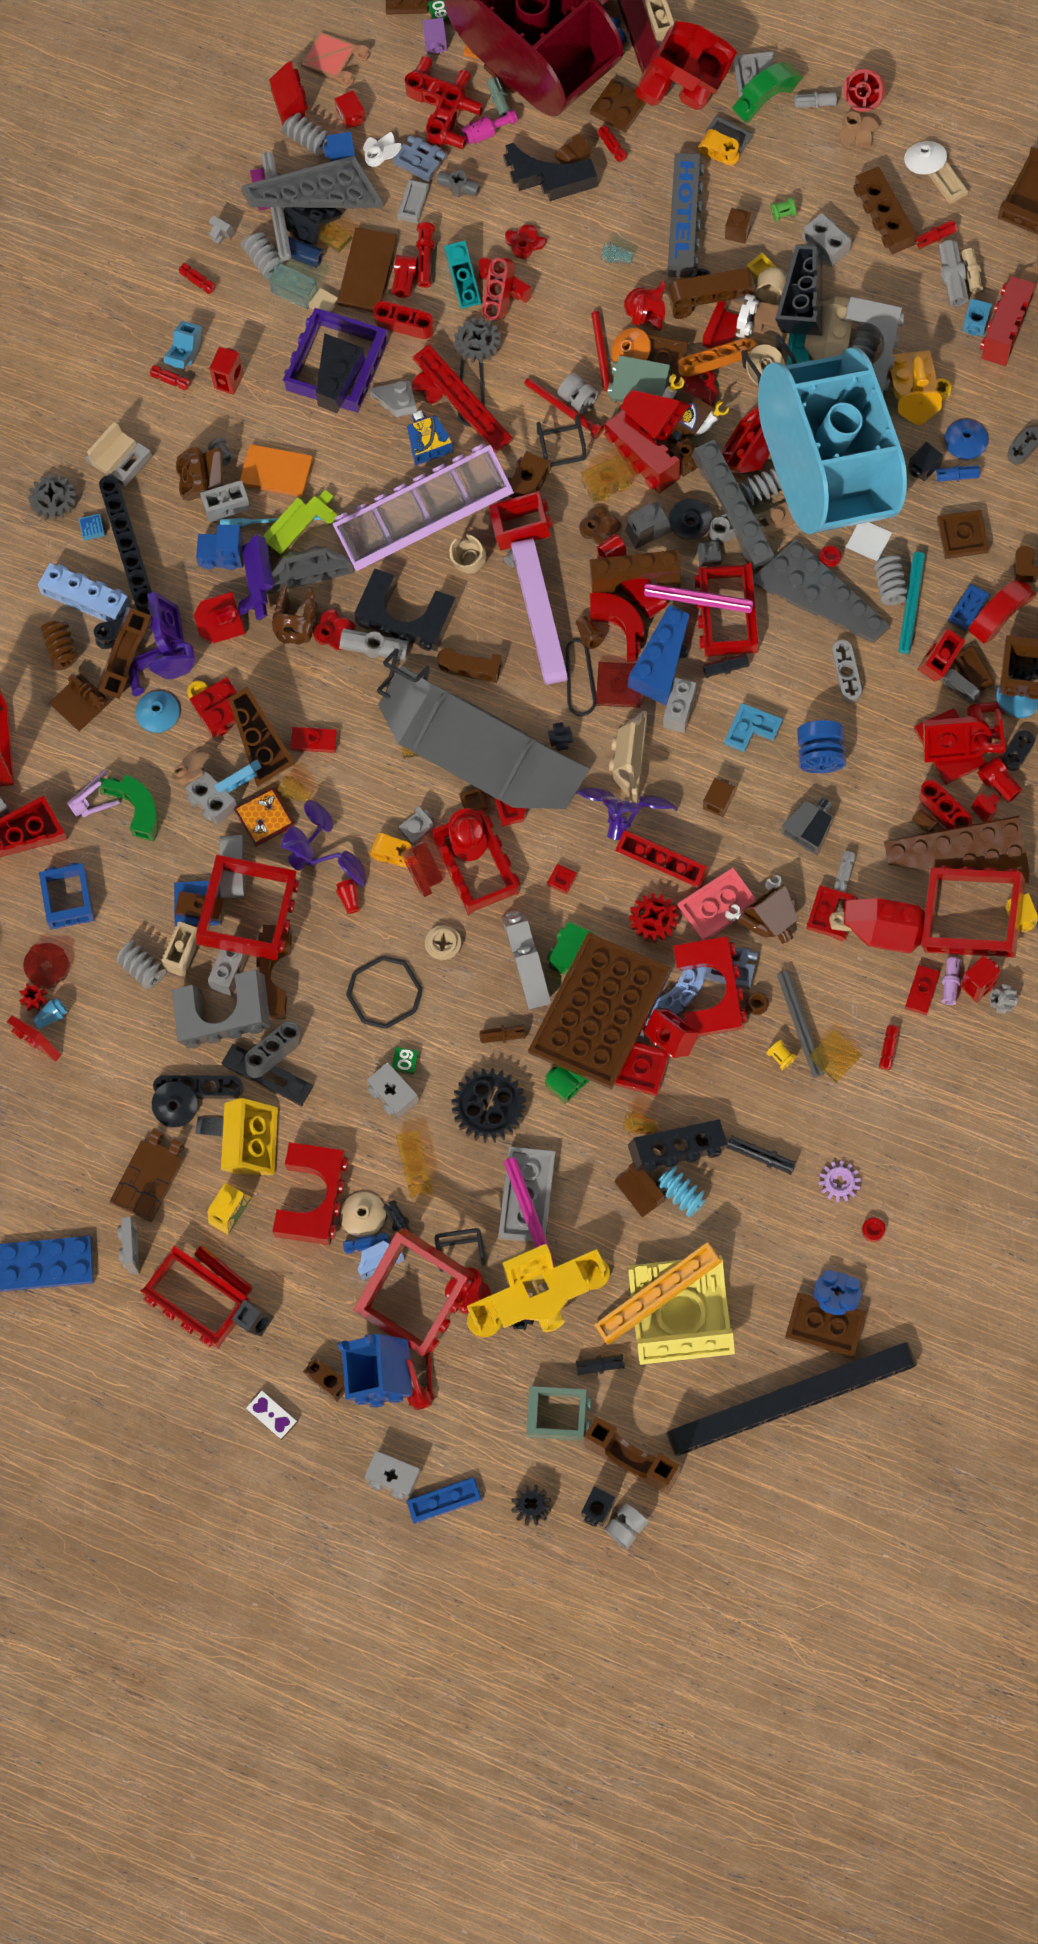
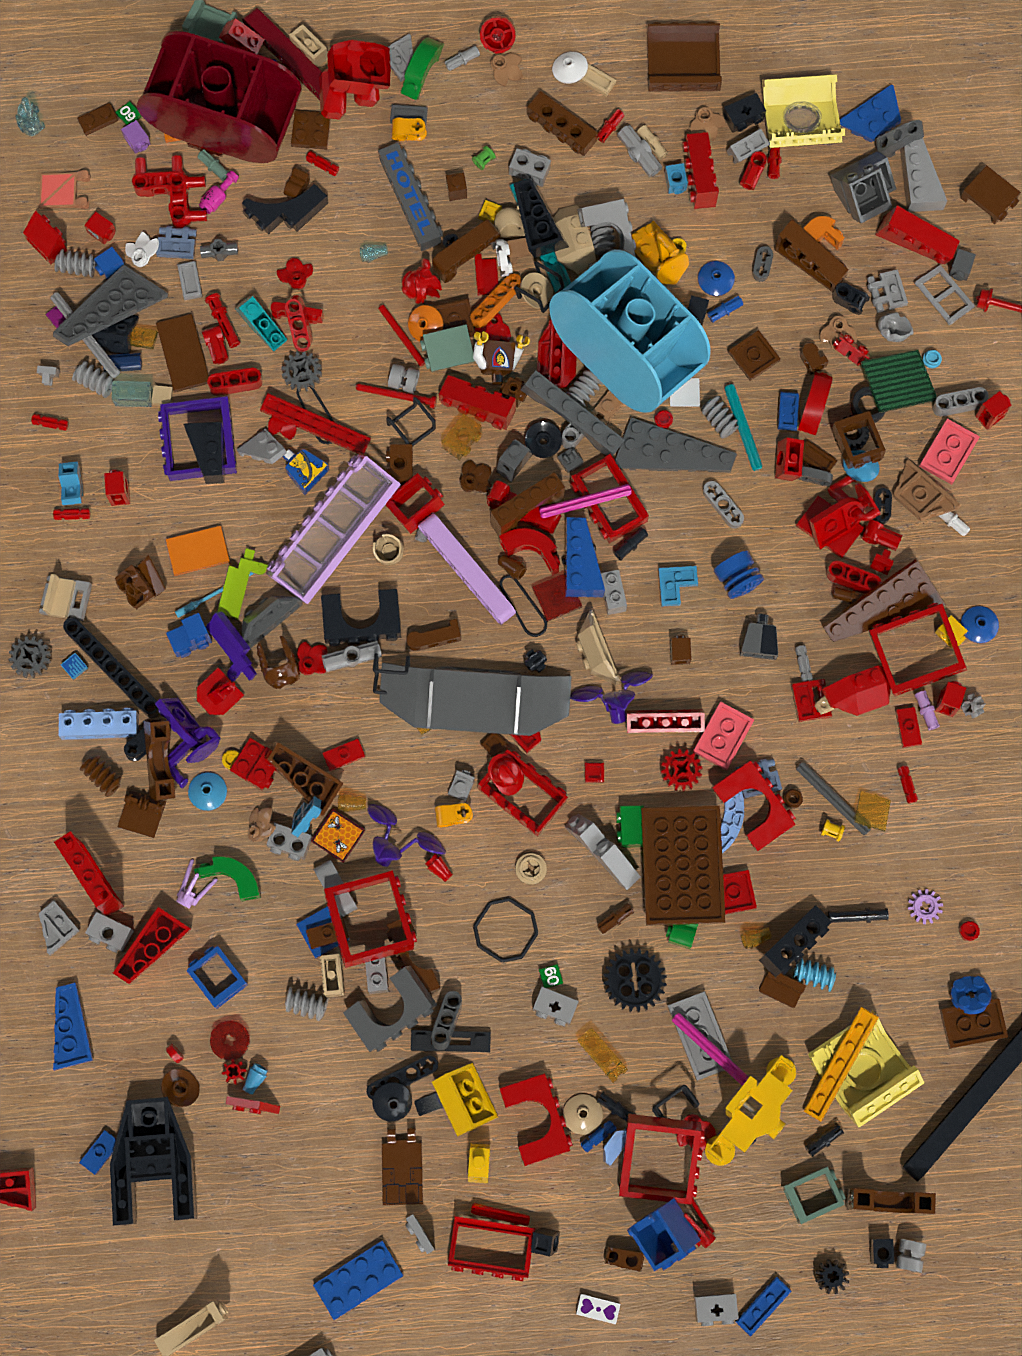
camera: 35 degrees left, 5 degrees up
(225, 501) = (172, 595): light grey brick -> none
(227, 457) = (142, 552): dark grey bush -> none
(422, 867) = (485, 818): clear red panel -> none
(654, 413) = (475, 369): red slope -> none
(671, 1033) = (755, 855): red brick -> none
(770, 913) = (768, 724): reddish brown torso -> none

